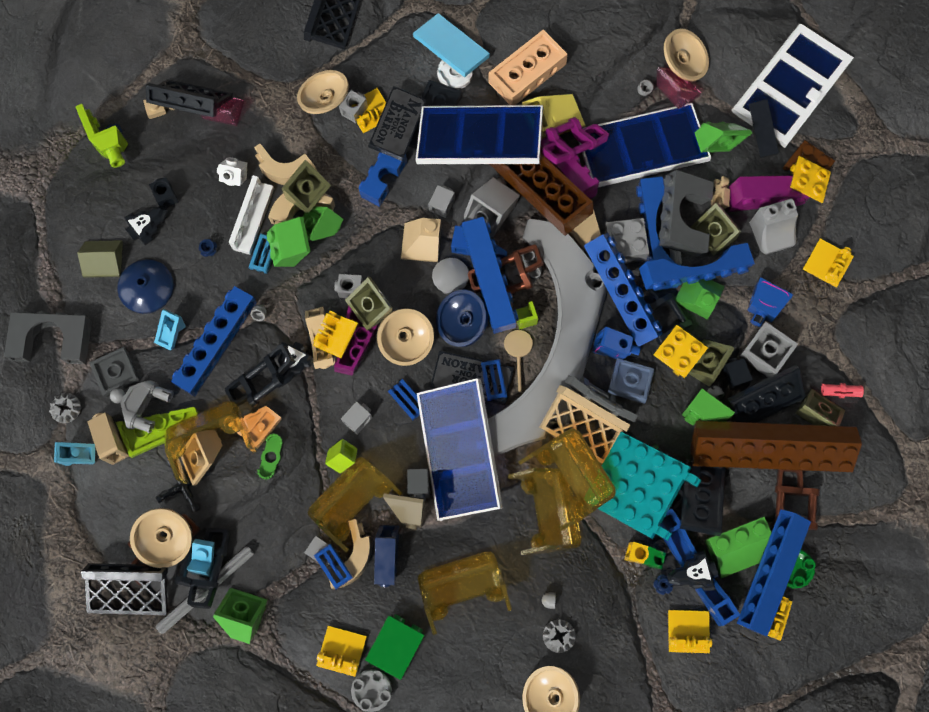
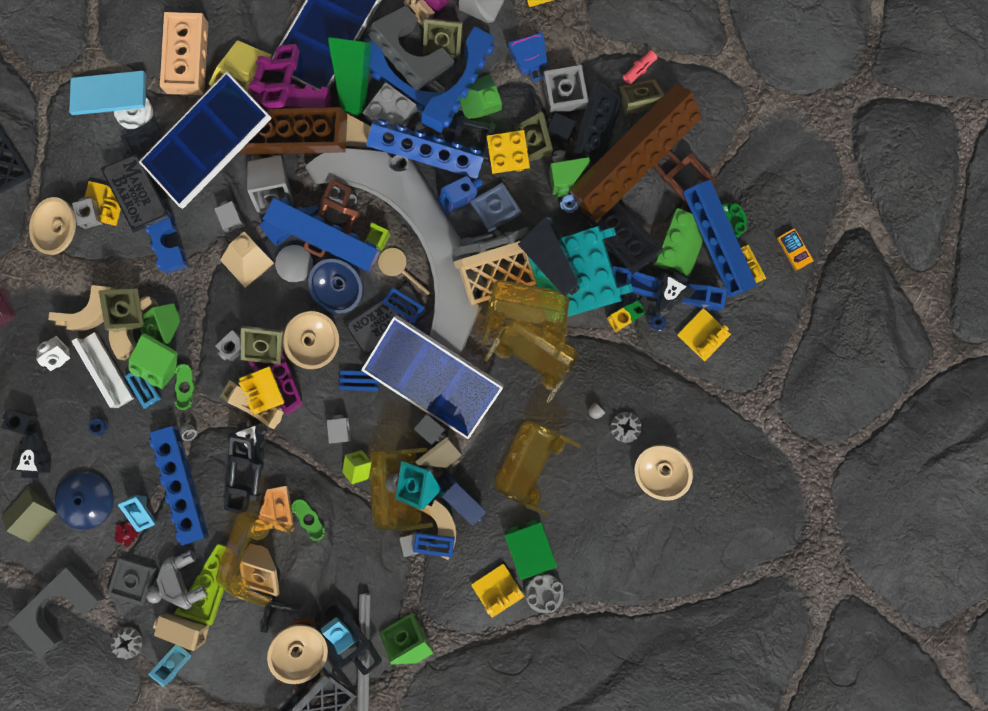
camera: 55 degrees left, 10 degrees up
(145, 337) = (126, 534): none -> dark red plant
(299, 273) = (184, 374): none -> bright green piece
(354, 494) = (391, 482): none -> dark grey tile
(366, 511) = (416, 486): none -> teal slope
(626, 189) = (351, 73): none -> green slope
(633, 452) = (551, 256): none -> black slope
(682, 432) = (564, 204): none -> light blue plate
(825, 643) = (795, 249): none -> tile

